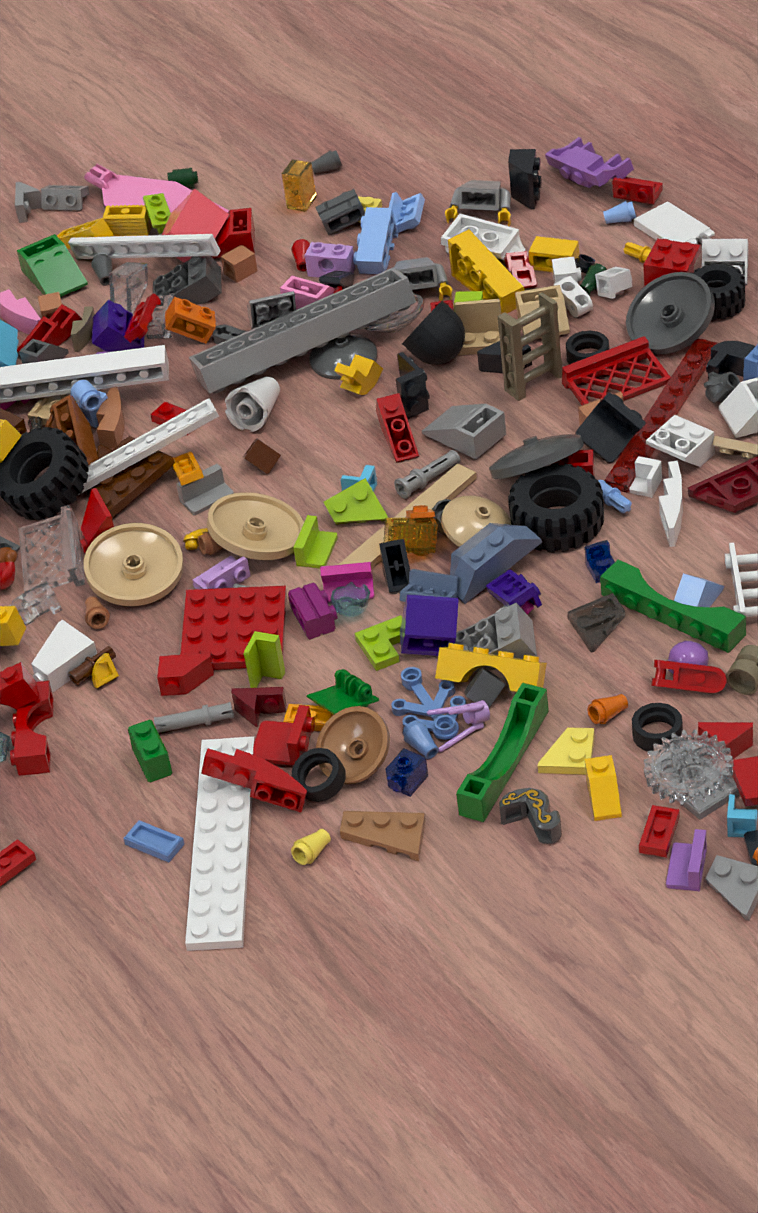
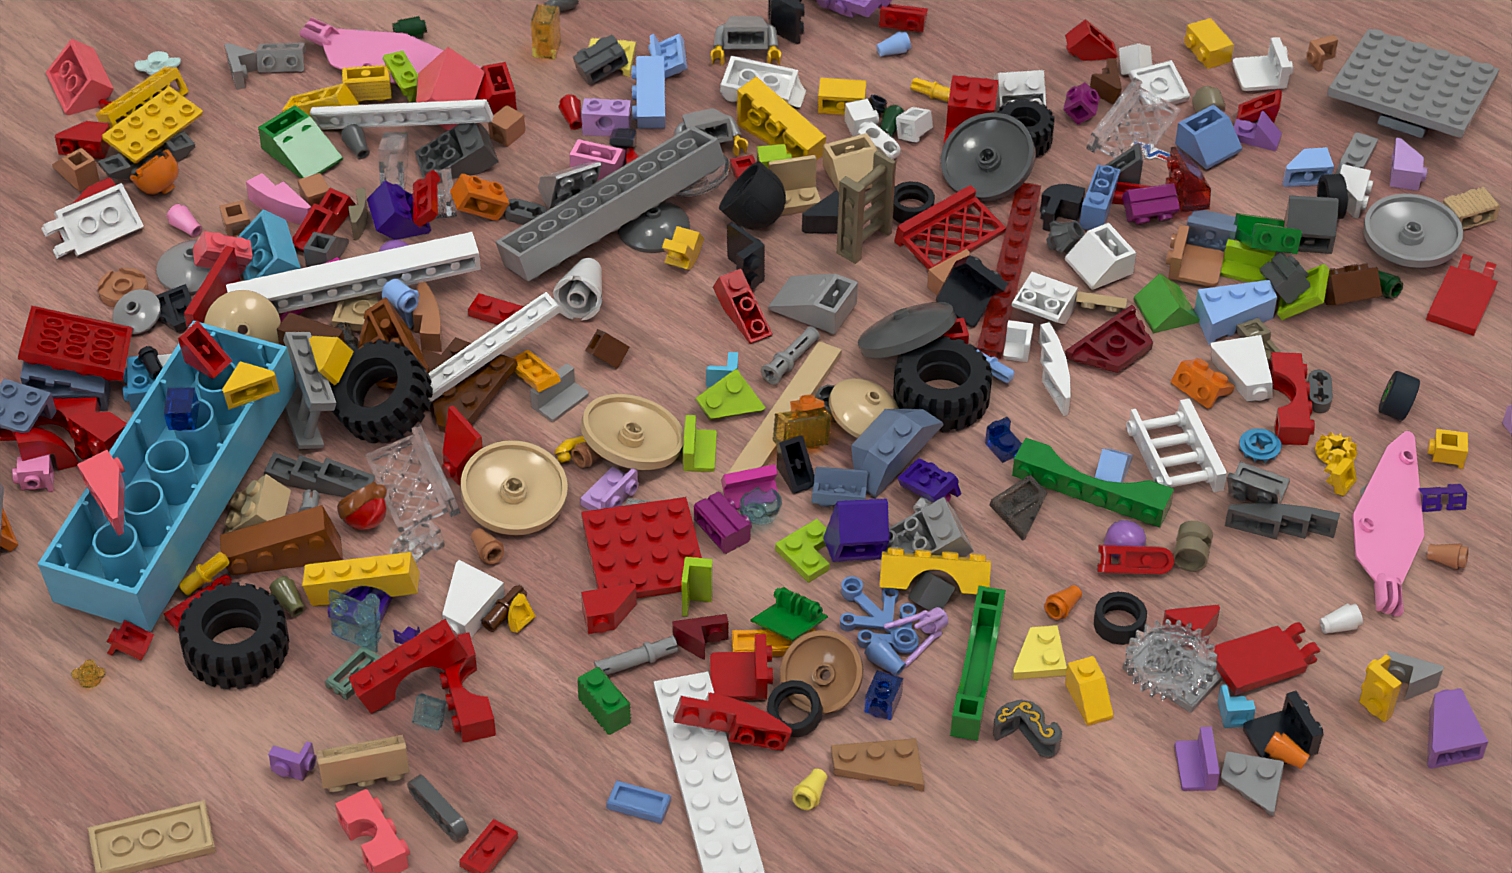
camera: 20 degrees left, 5 degrees up
(519, 266) = (809, 109): slope -> none
(659, 831) = (1159, 731): red plate -> none
(672, 224) = (953, 57): white tile -> none

